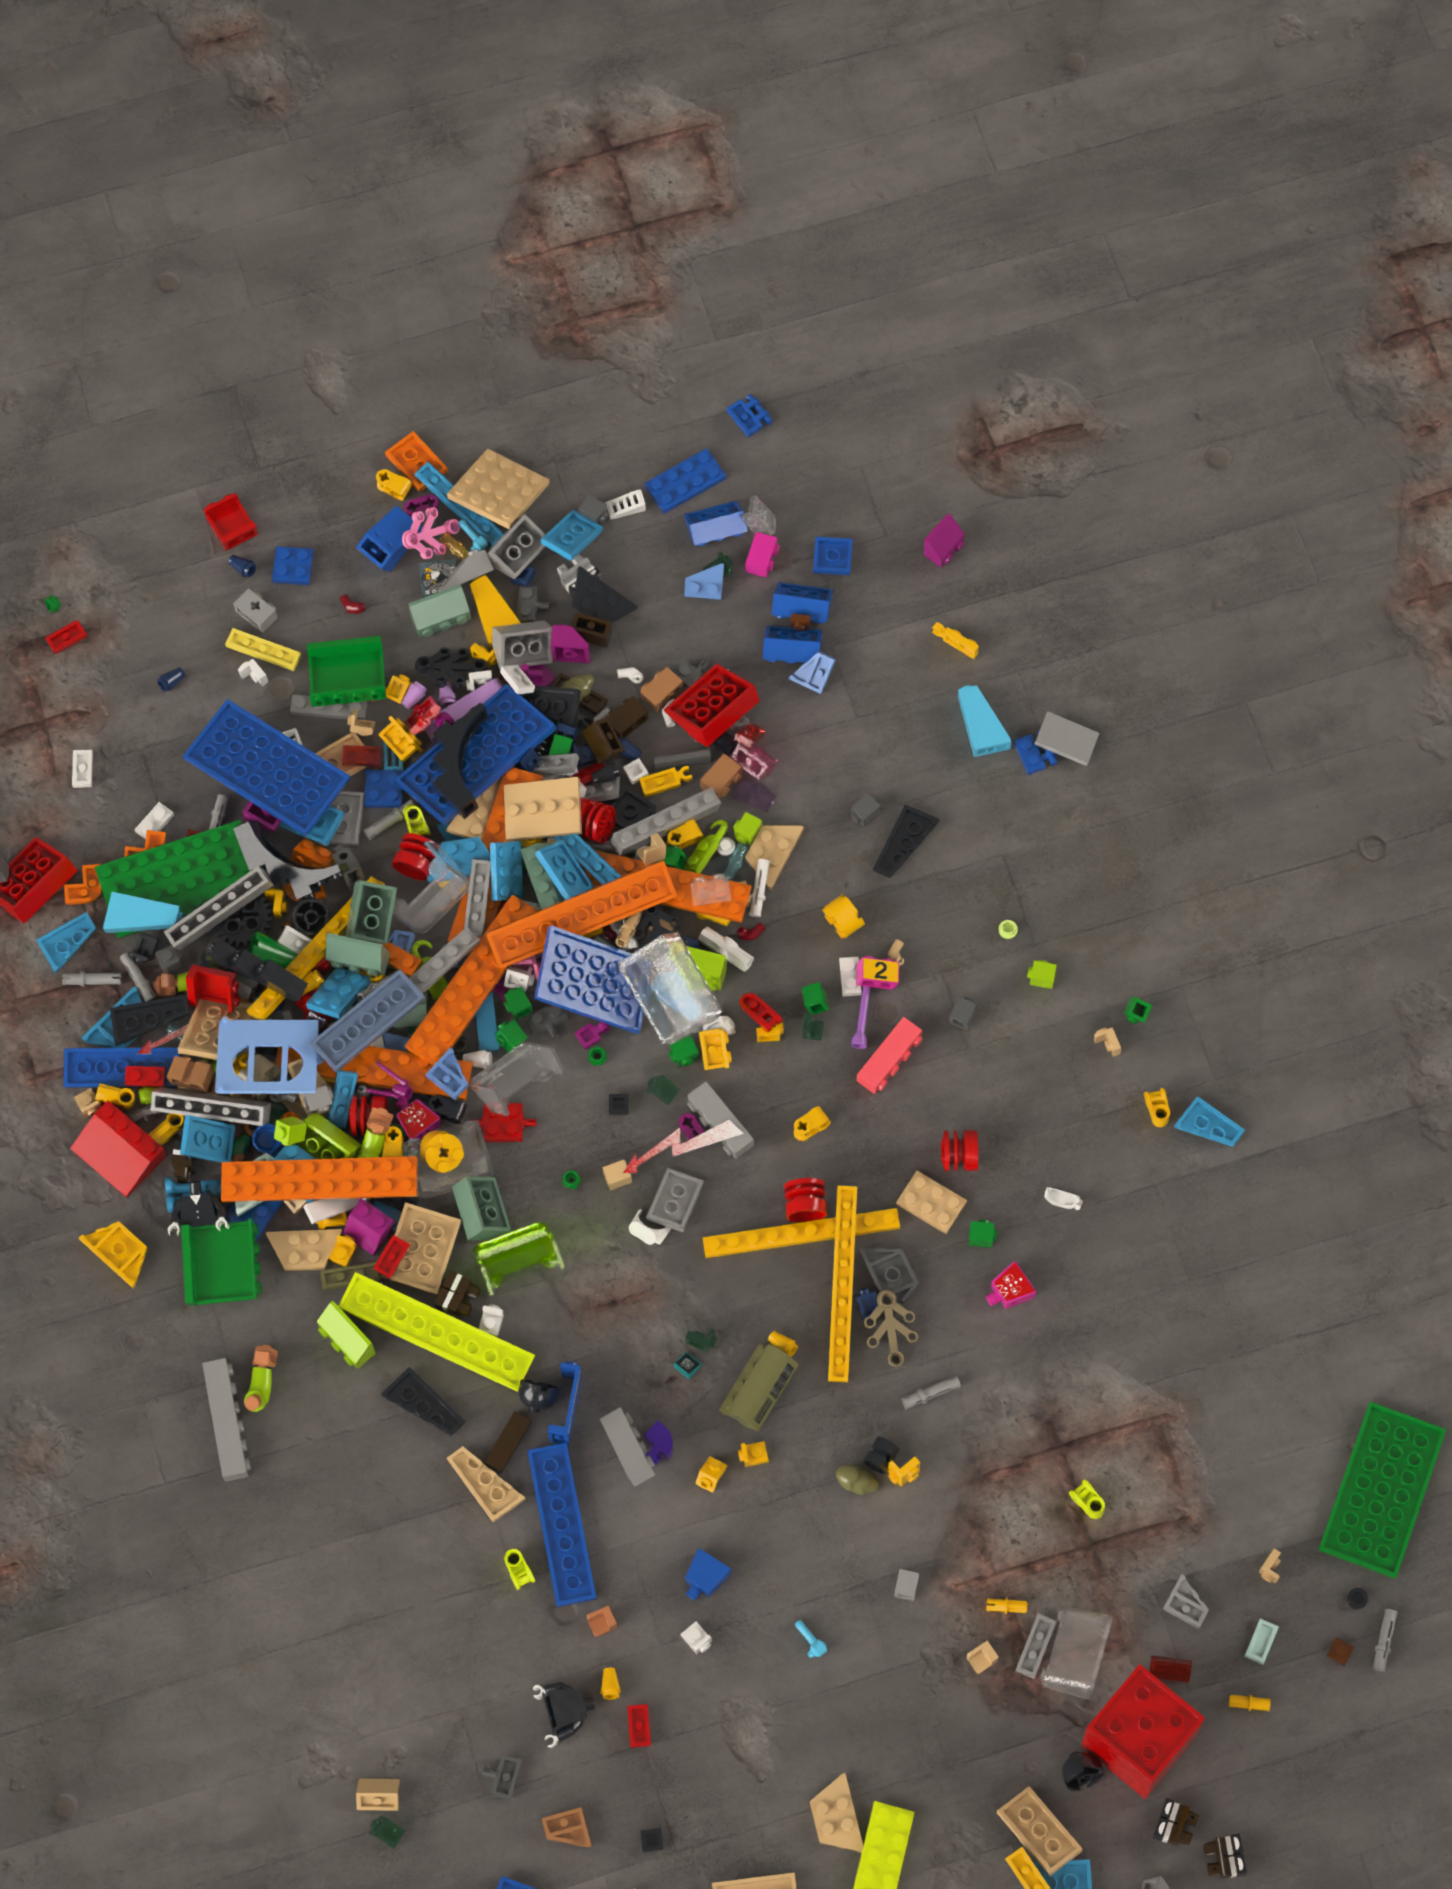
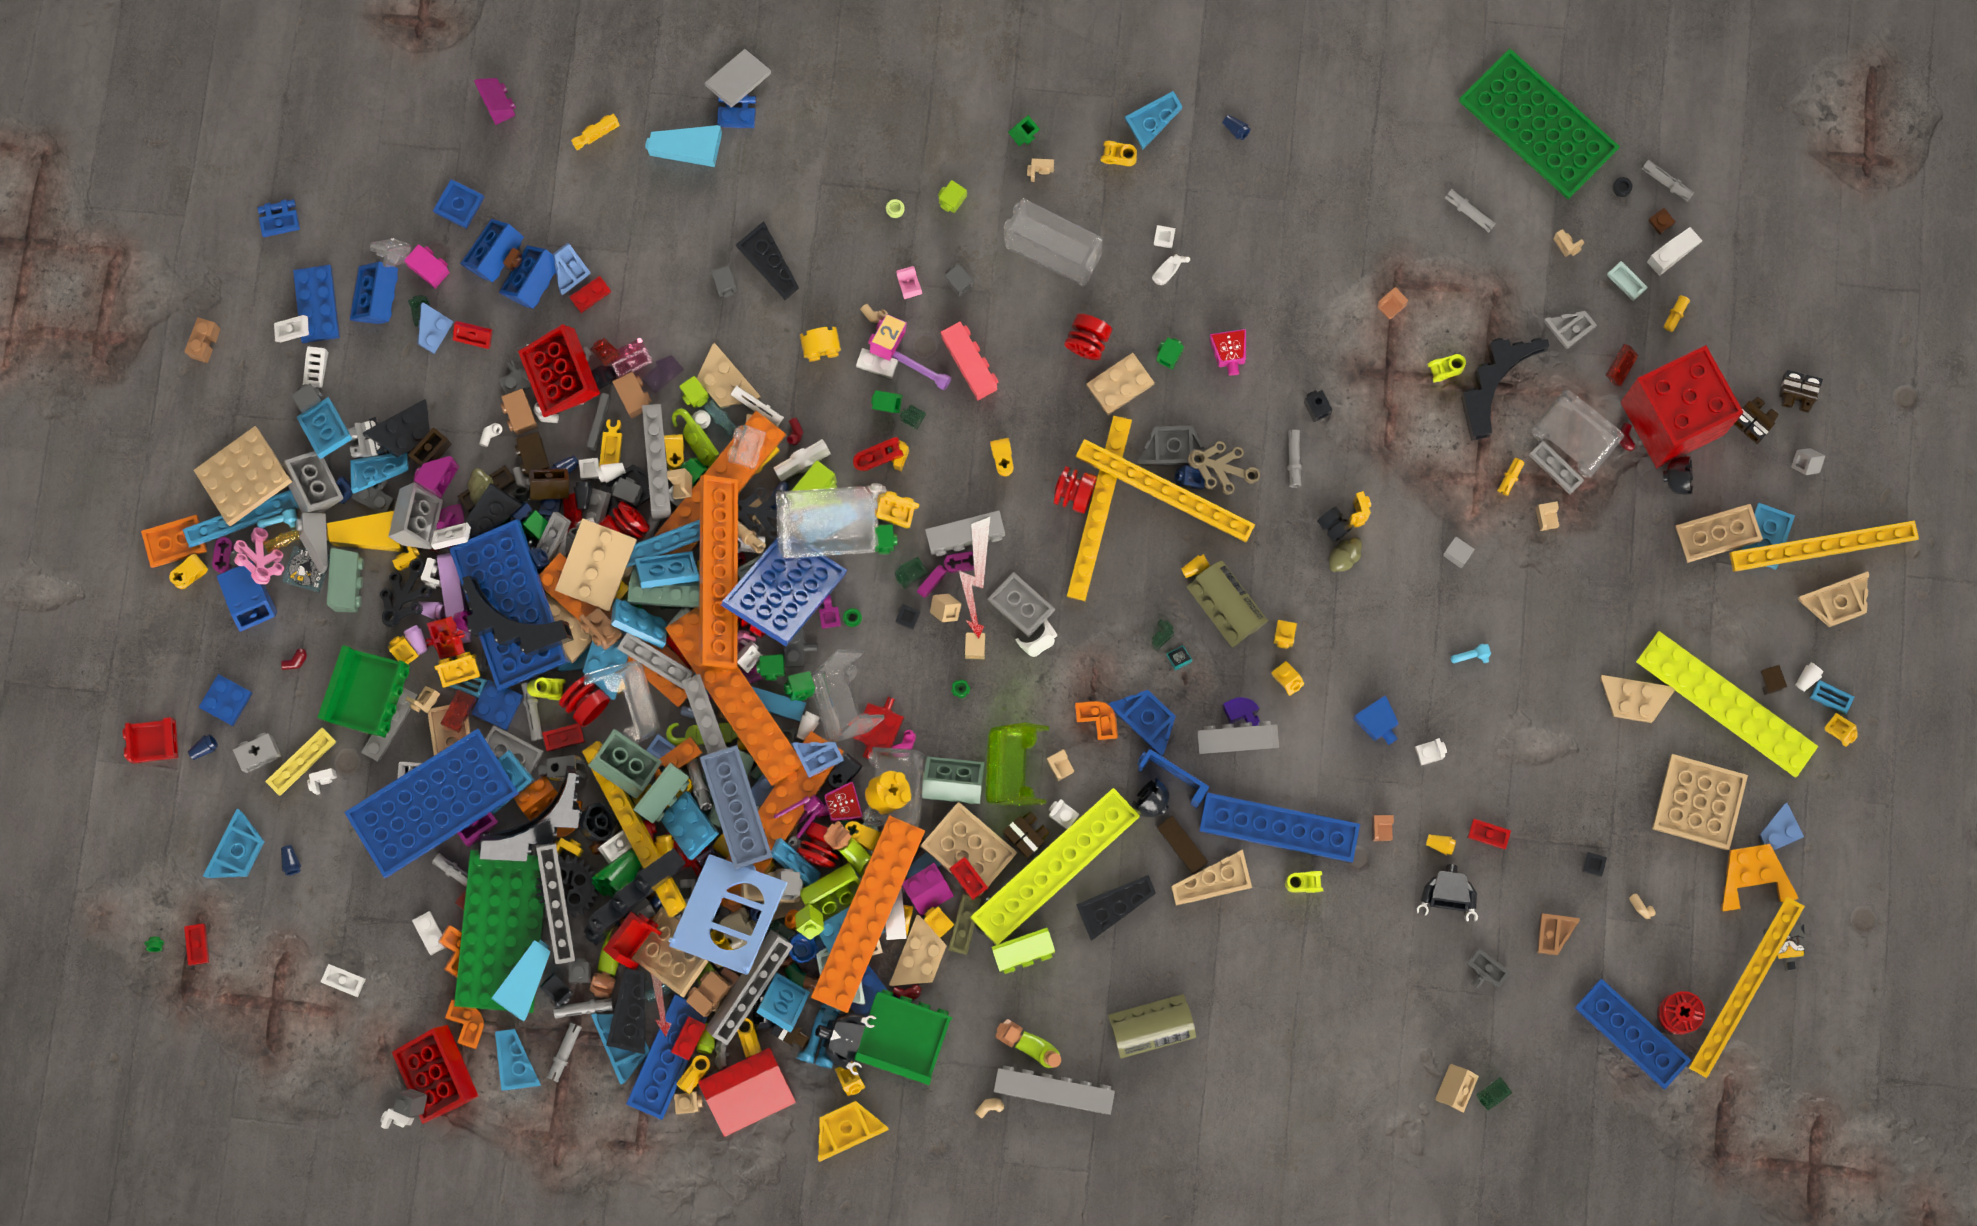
camera: 65 degrees left, 10 degrees up
(160, 1235) = (851, 1083): none -> yellow bracket
(163, 632) = (236, 849): none -> dark azure wing
(190, 1367) = (989, 1104): none -> tan arm
(265, 1254) = (912, 993): none -> dark red arm
(321, 1482) = (1152, 1026): none -> olive brick
(377, 855) = (563, 737): none -> red plate
(487, 833) = (600, 629): none -> medium nougat bracket
(499, 1154) = (907, 742): none -> dark pink arm
(536, 1298) = (1060, 765): none -> tan panel
(552, 593) = (376, 469): none -> dark azure wing
(599, 1318) = (1102, 714): none -> orange plate
(607, 402) = (200, 339): none -> medium nougat brick
(615, 1359) = (1147, 718): none -> blue wing
(626, 809) = (627, 491): none -> dark grey brick
(638, 787) = (610, 471): none -> white cone
(642, 1133) = (945, 607): none -> tan panel
(650, 469) = (291, 328): none -> white plate
(662, 1111) = (932, 581): none -> magenta beam
(715, 619) = (472, 334): none -> red plate
(800, 702) = (590, 294): none -> red plate
(940, 971) = (908, 282): none -> bright pink bracket
(993, 1392) = (1317, 405): none -> black brick
(1036, 1079) = (1053, 242): none -> clear container
(1095, 1182) = (1164, 236): none -> white plate
(1095, 1702) = (1627, 443): none -> dark red arm
(1123, 1551) = (1503, 358): none -> black arch
(1129, 1421) = (1392, 303): none -> nougat panel
(1237, 1205) = (1236, 127): none -> dark blue cone
(1259, 1461) = (1472, 212): none -> light grey pin
(1315, 1675) = (1674, 251): none -> white slope

